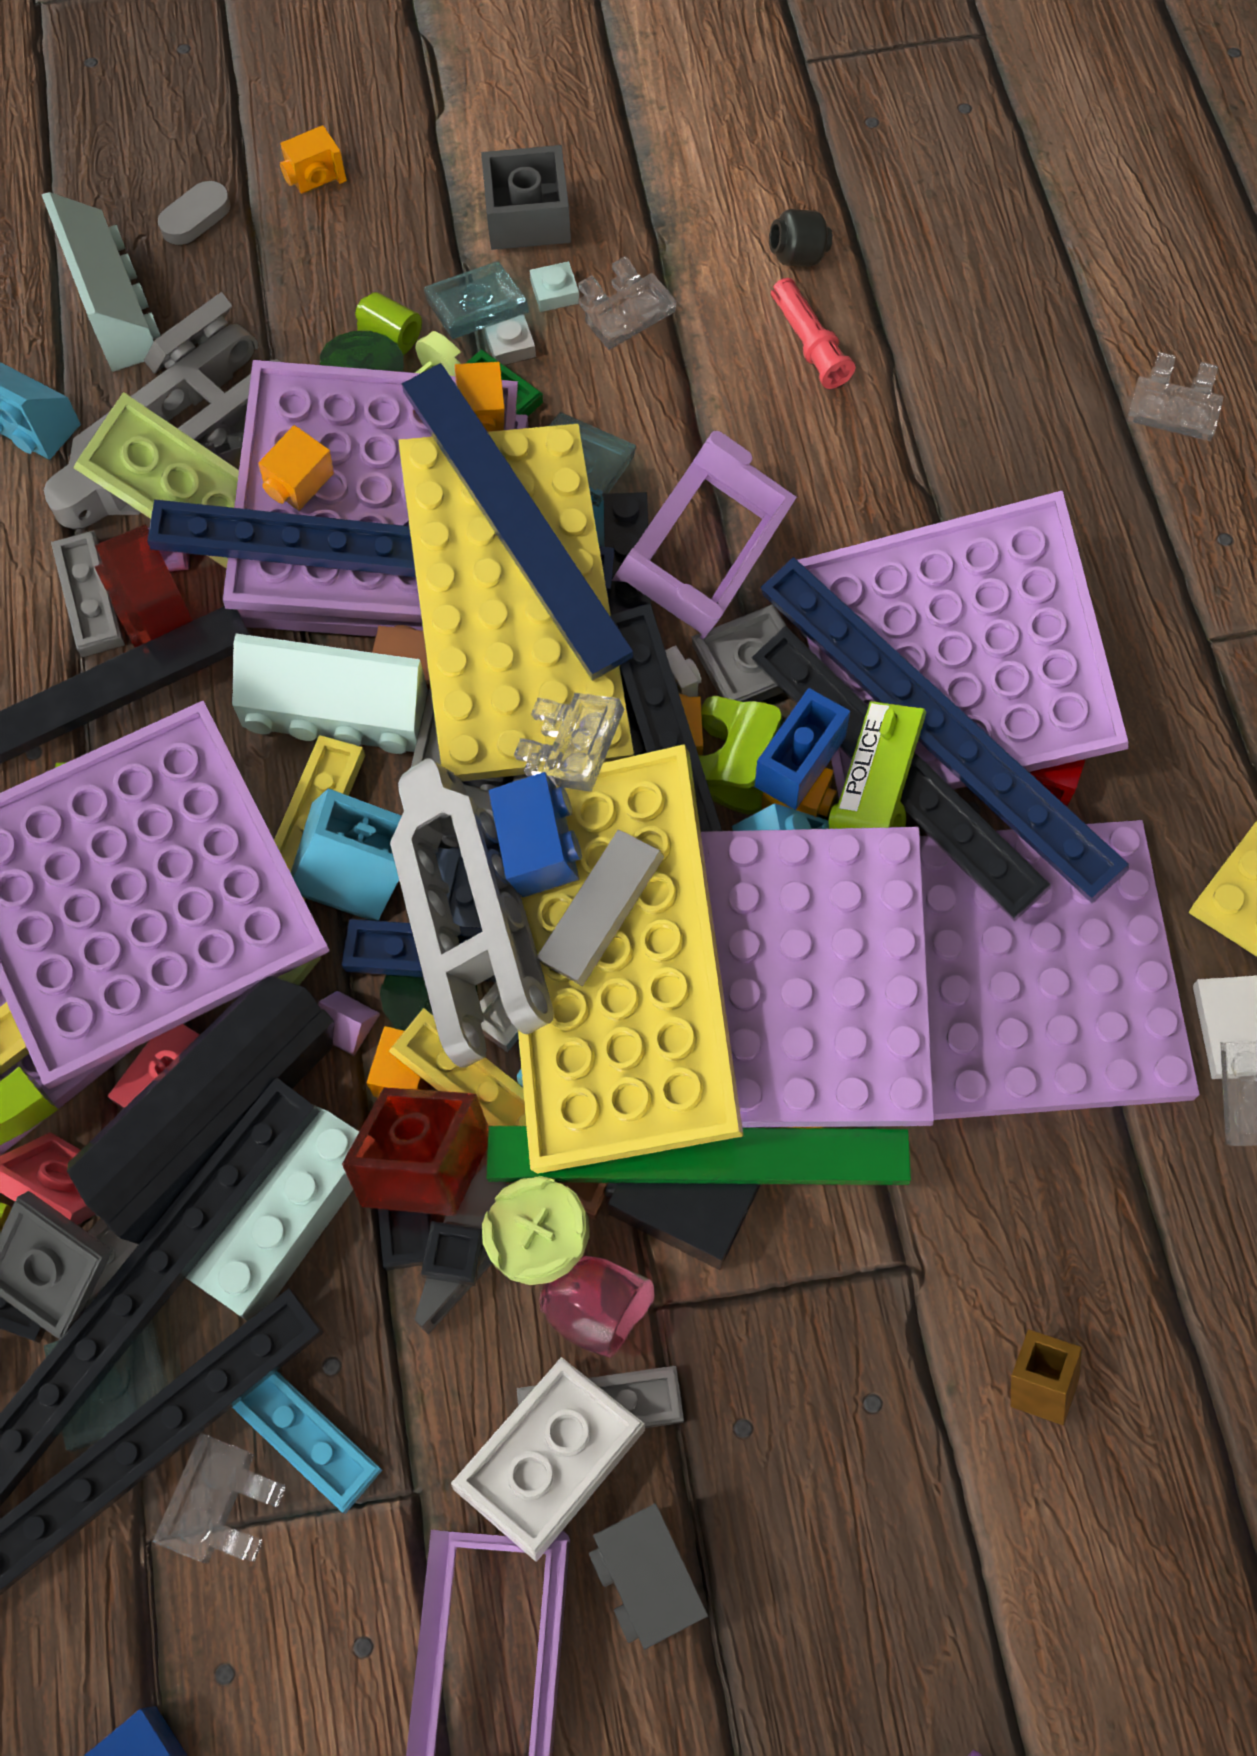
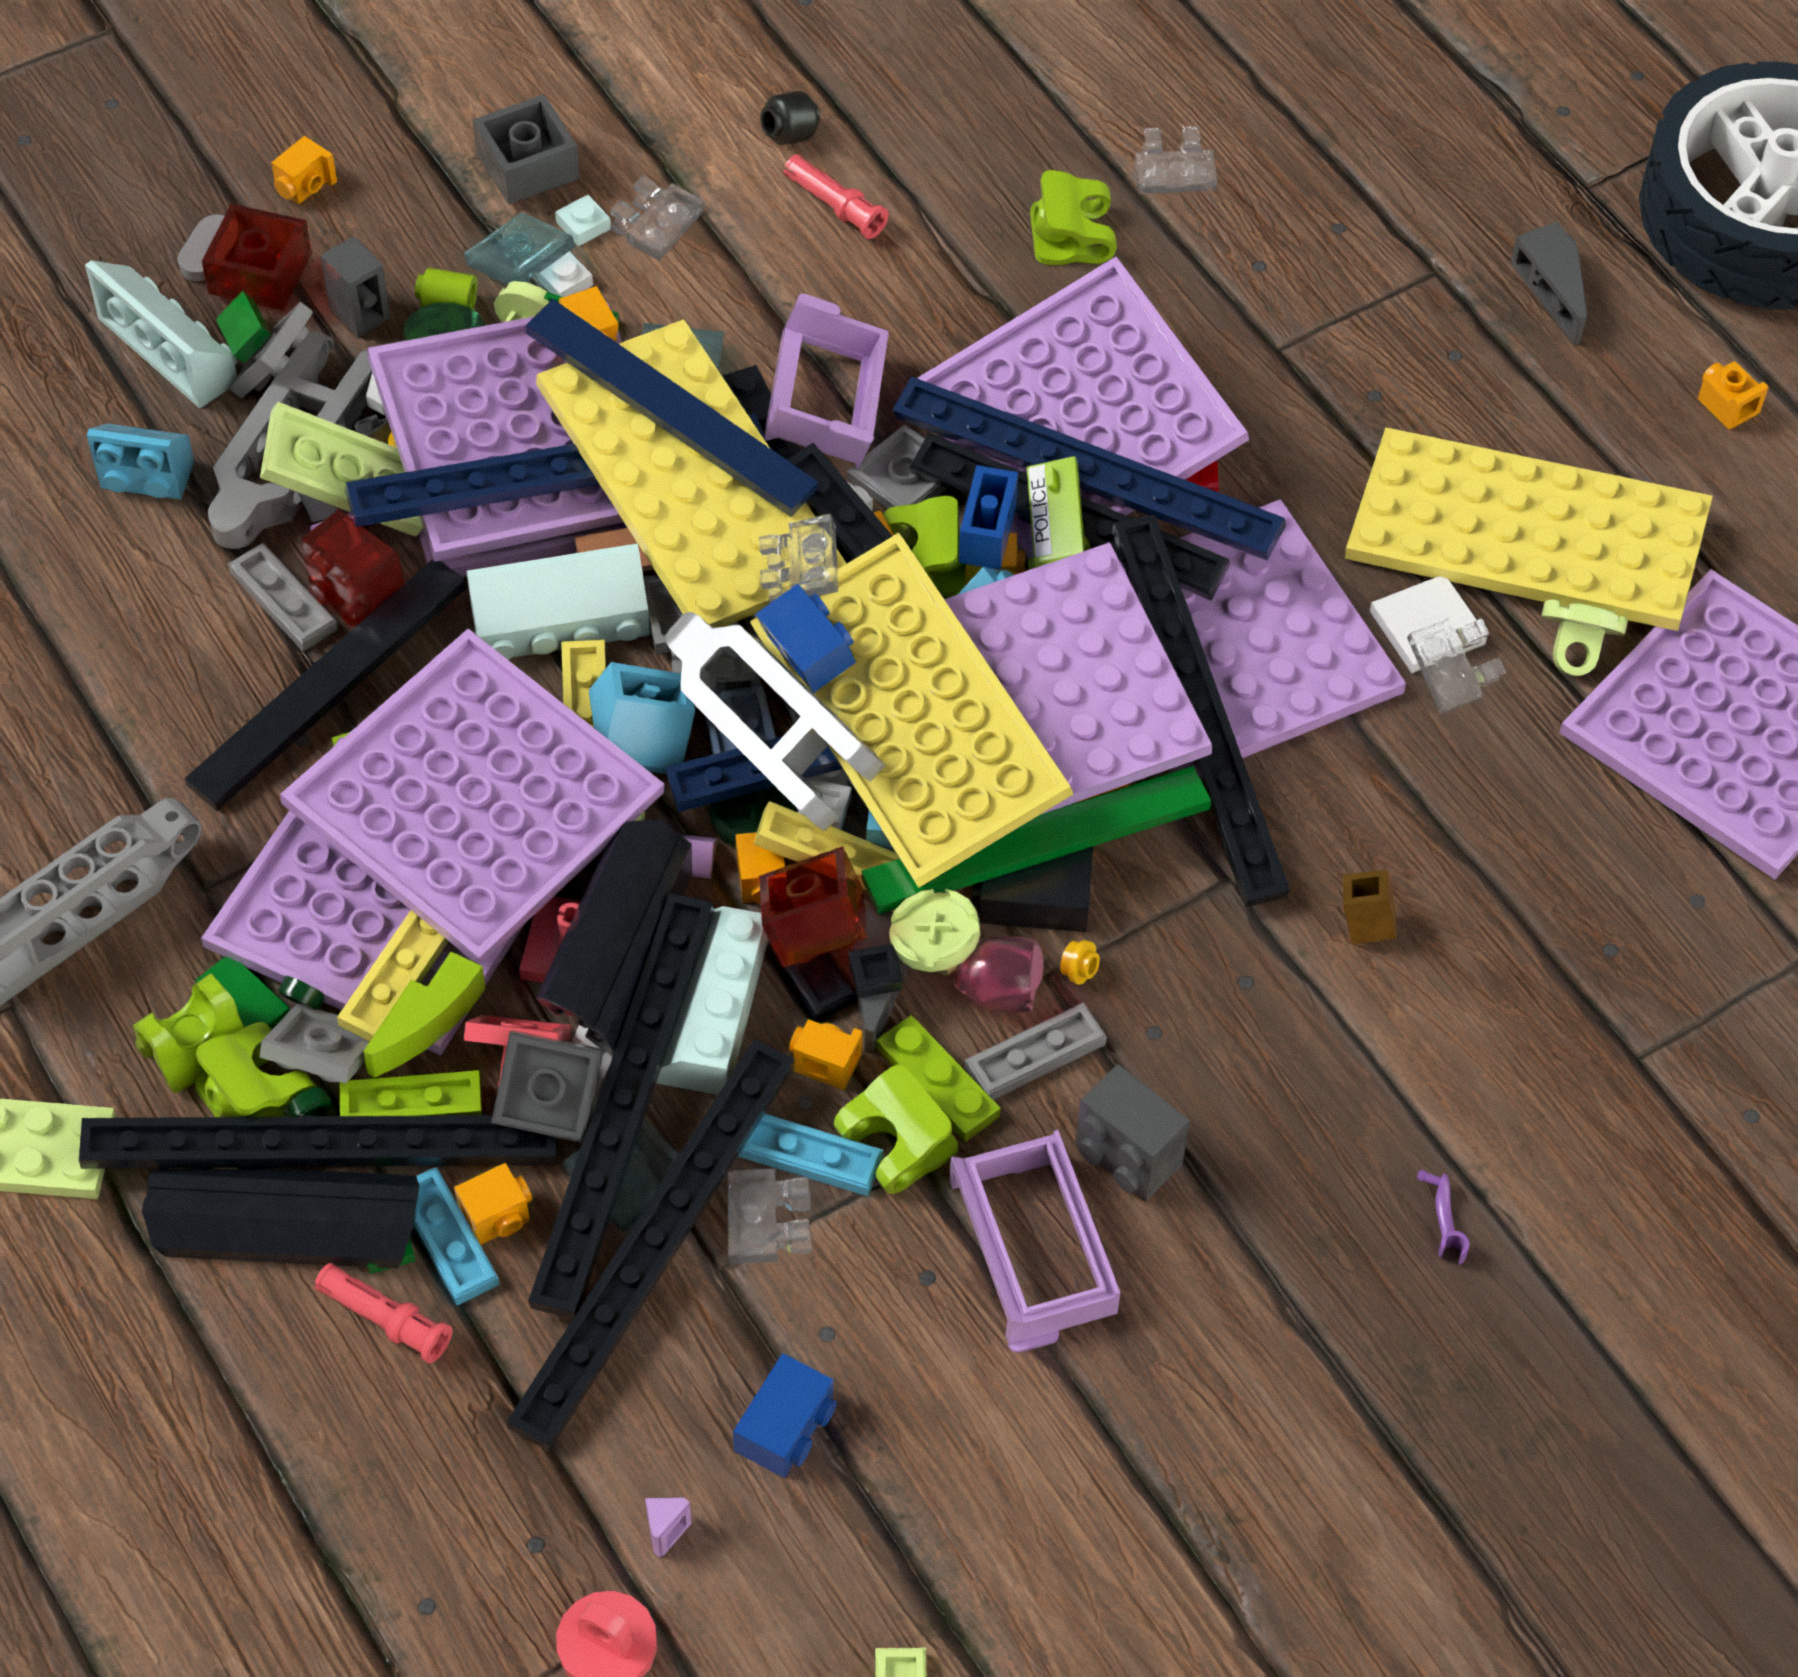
camera: 25 degrees left, 10 degrees down
(178, 300) = (243, 327): none -> green tile
(224, 234) = (257, 255): none -> clear red brick
(295, 468) = (455, 423): light orange brick -> none
(296, 291) = (355, 286): none -> dark grey brick
(370, 1322) = (826, 1052): none -> light orange brick
(422, 1449) = (902, 1108): none -> lime piece
(473, 1378) = (941, 1076): none -> lime plate
(548, 1458) = (1016, 1085): white tile -> none
(600, 907) = (885, 672): light grey tile -> none
(692, 1313) = (1079, 961): none -> yellow plate
(943, 1149) = (1224, 771): none -> black plate
(1028, 429) = (1062, 221): none -> lime piece

